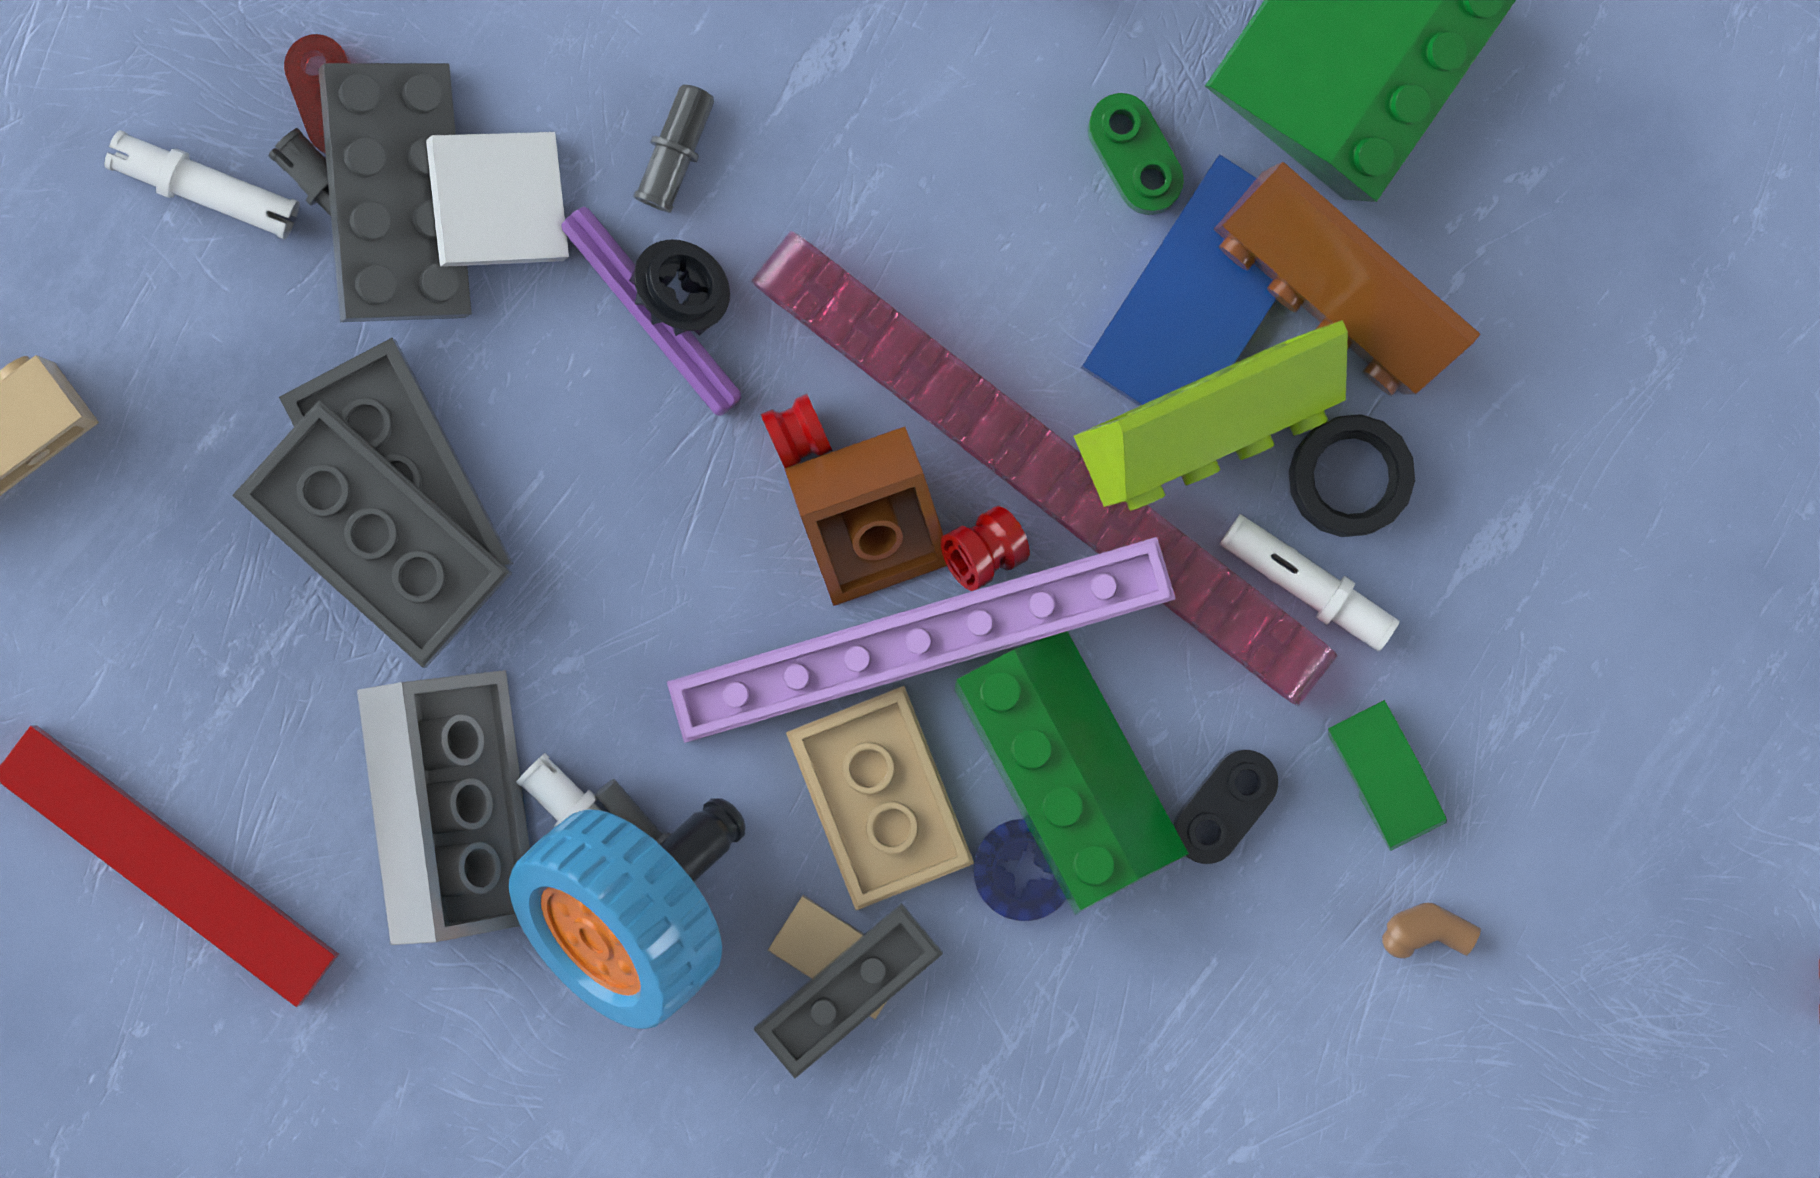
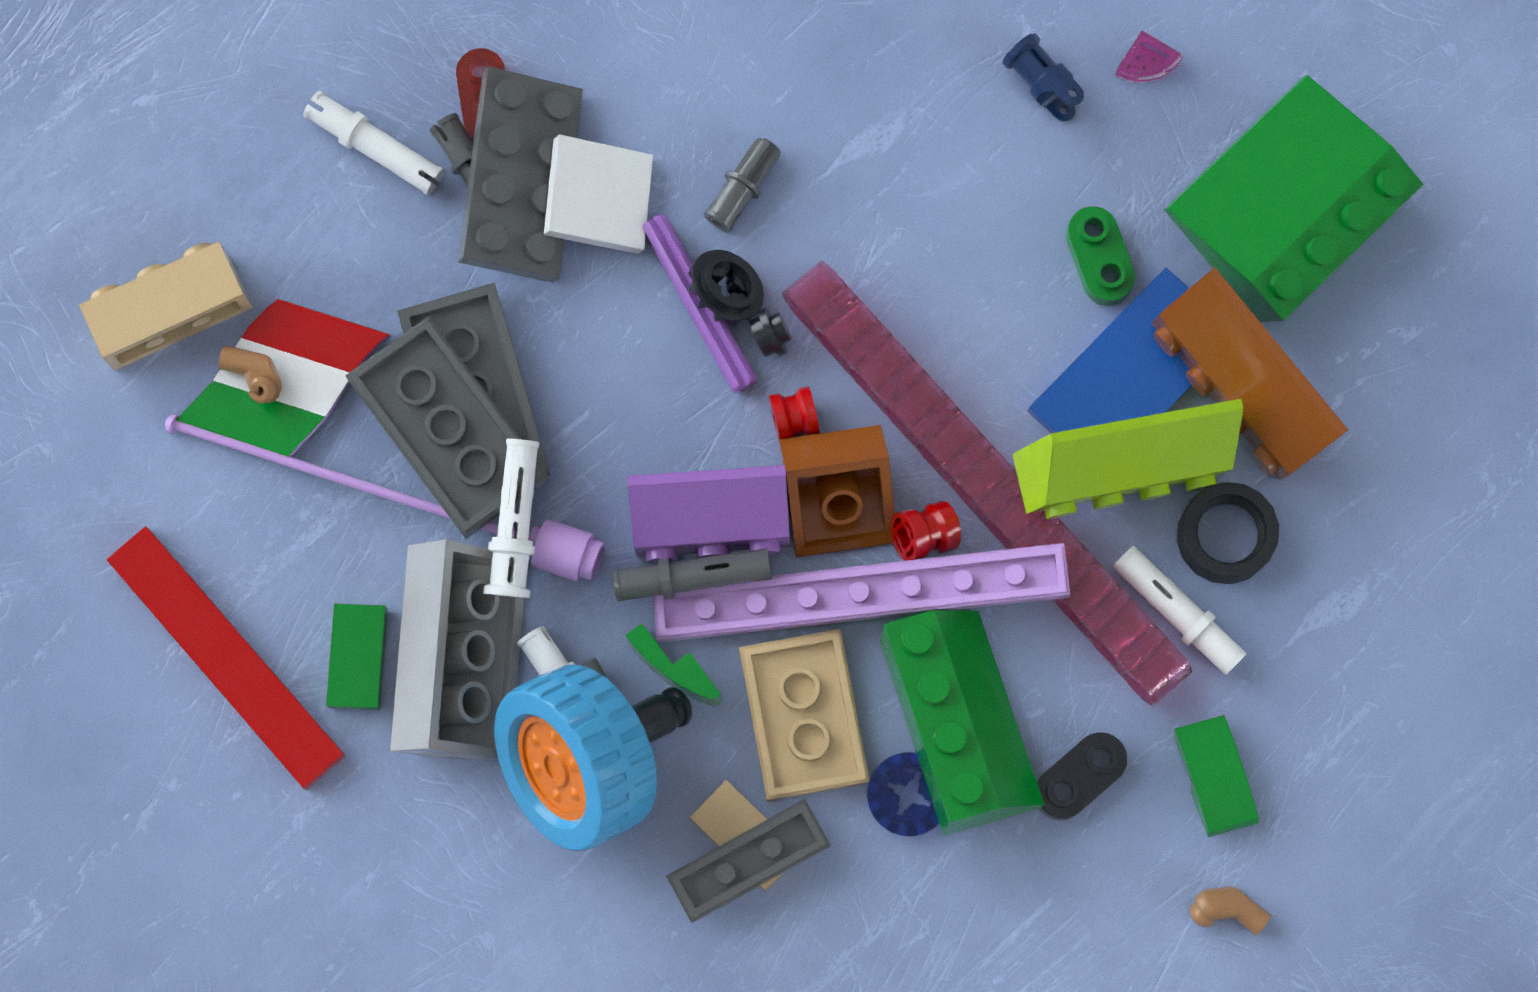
camera: 15 degrees right, 10 degrees down
(122, 504) = (257, 369): none -> medium nougat arm
(161, 517) = (312, 359): none -> flag
(325, 833) = (357, 656): none -> green tile
(473, 558) = (519, 455): none -> white pin
(703, 662) = (693, 574): none -> dark grey pin
(717, 581) = (709, 512): none -> medium lavender slope
(728, 781) = (683, 674): none -> green slope
(746, 334) = (770, 332): none -> black plate

